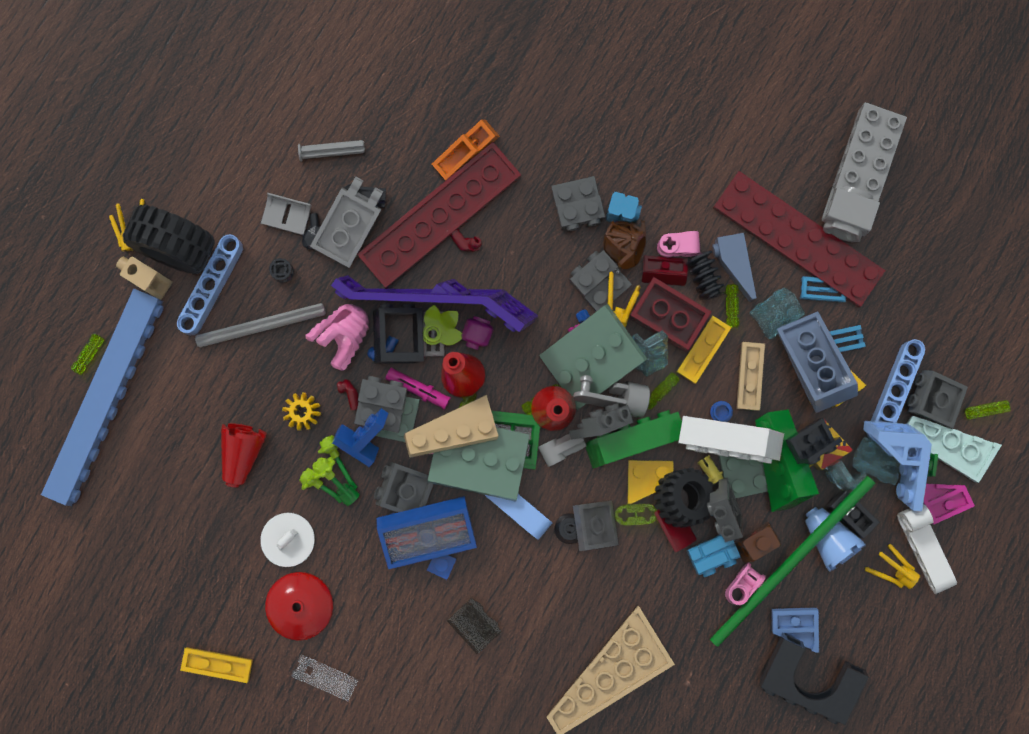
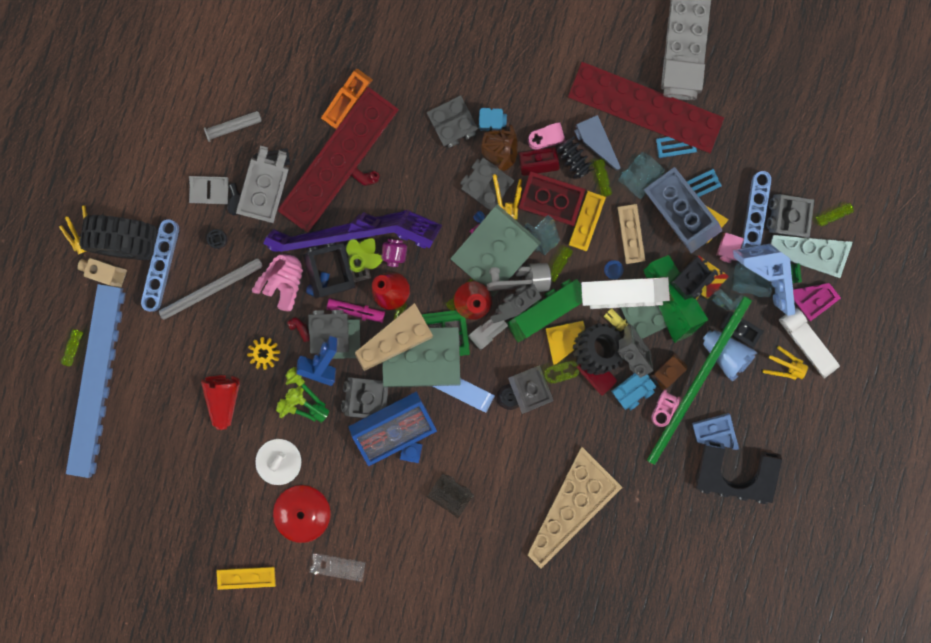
camera: 20 degrees left, 5 degrees up
(857, 415) = (727, 245): none -> bright pink brick

